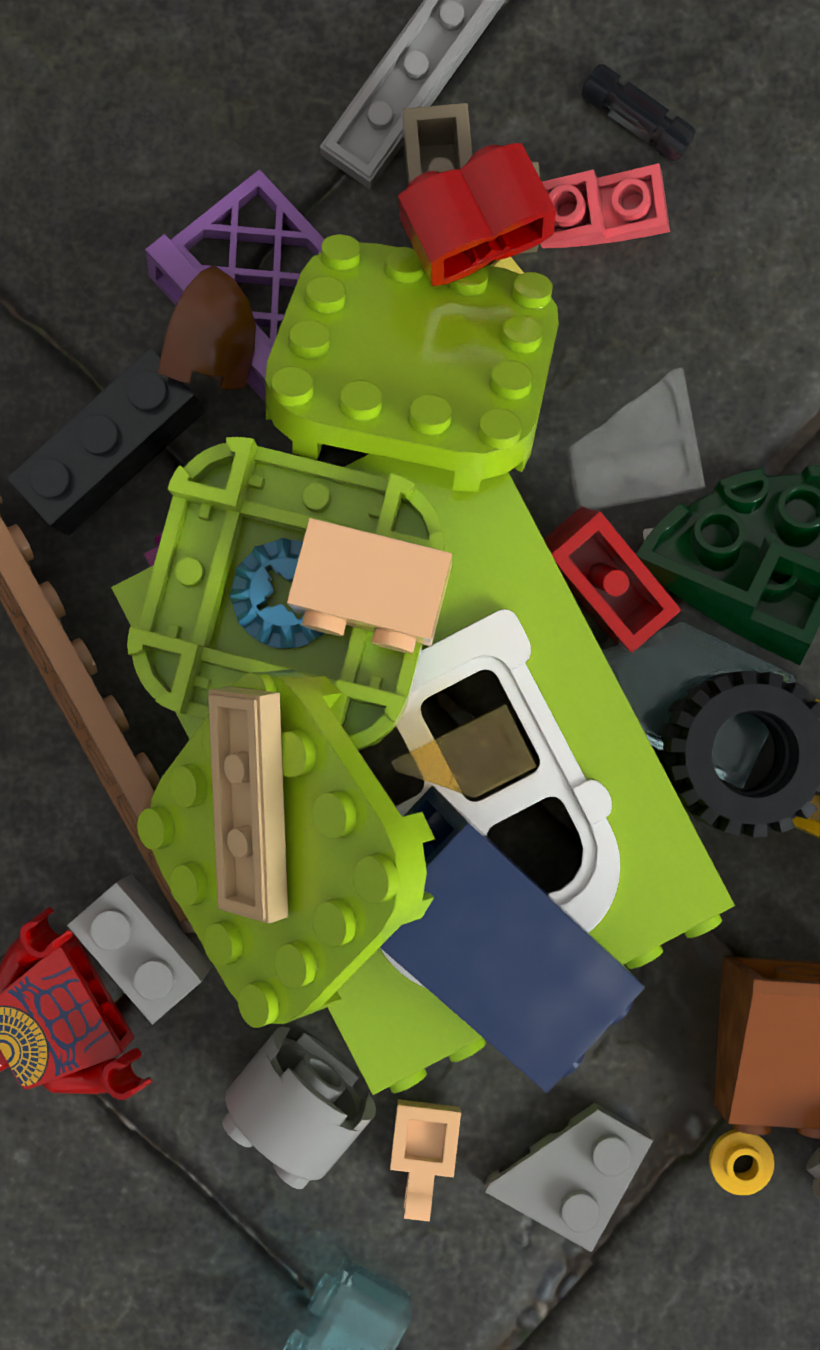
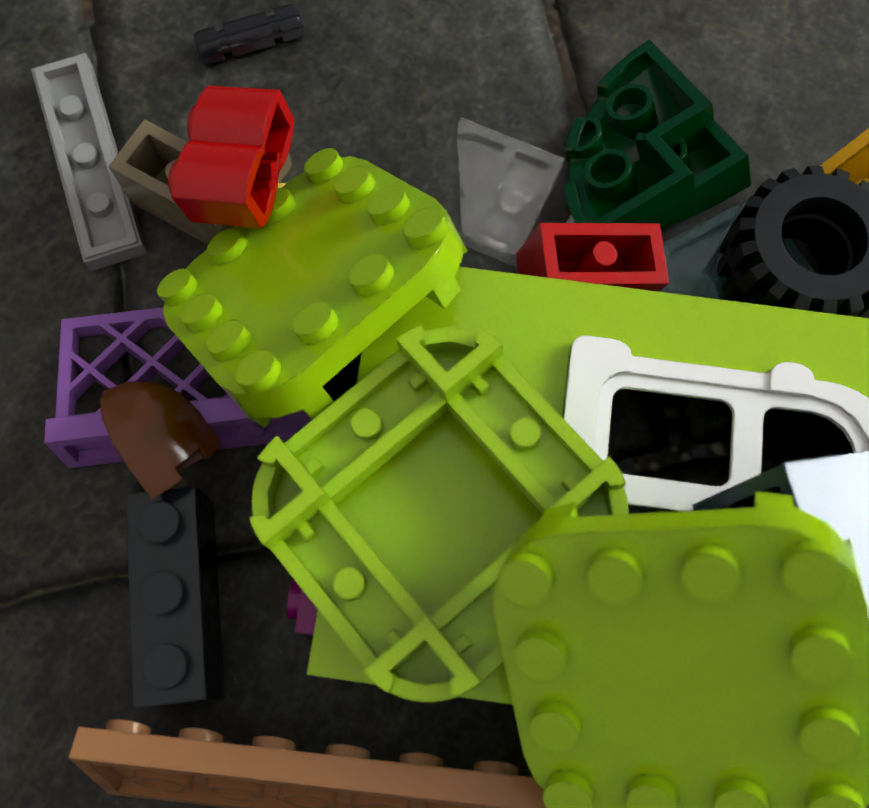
camera: 50 degrees left, 15 degrees down
(248, 802) = (632, 665): tan tile -> none
(253, 586) = (455, 538): dark azure gear -> none
(369, 585) = (486, 417): light nougat brick -> none
(471, 756) = (688, 449): clear yellow tile -> none
(607, 207) = (310, 88): coral slope -> none

